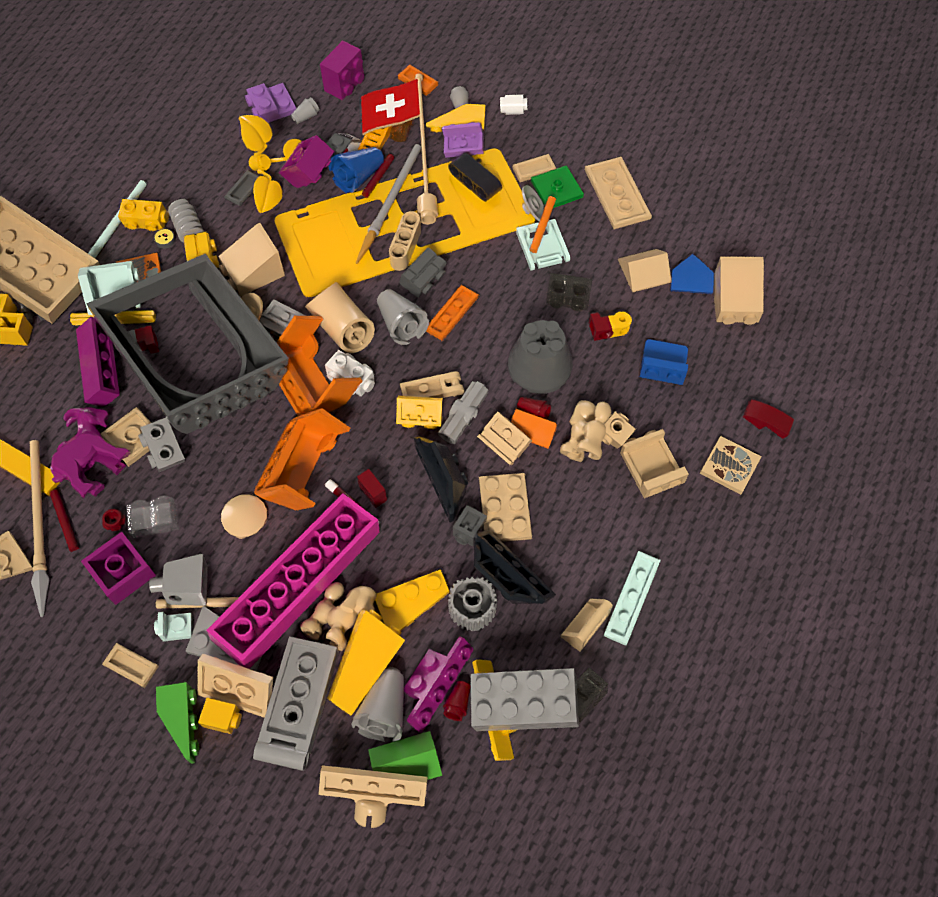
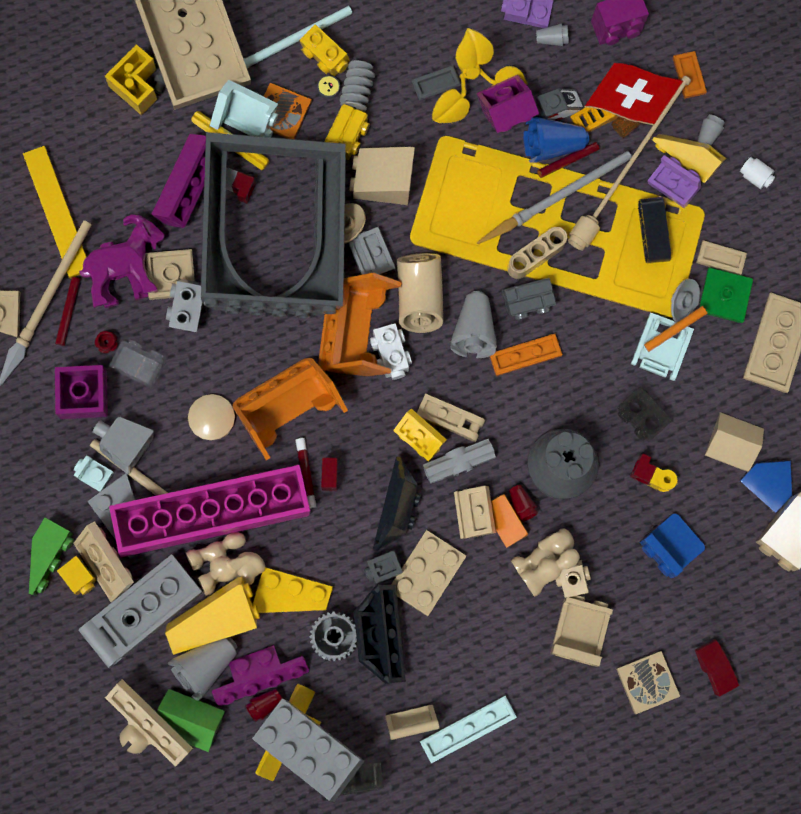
camera: 30 degrees right, 15 degrees up
(130, 665) = (39, 479): tan tile -> none

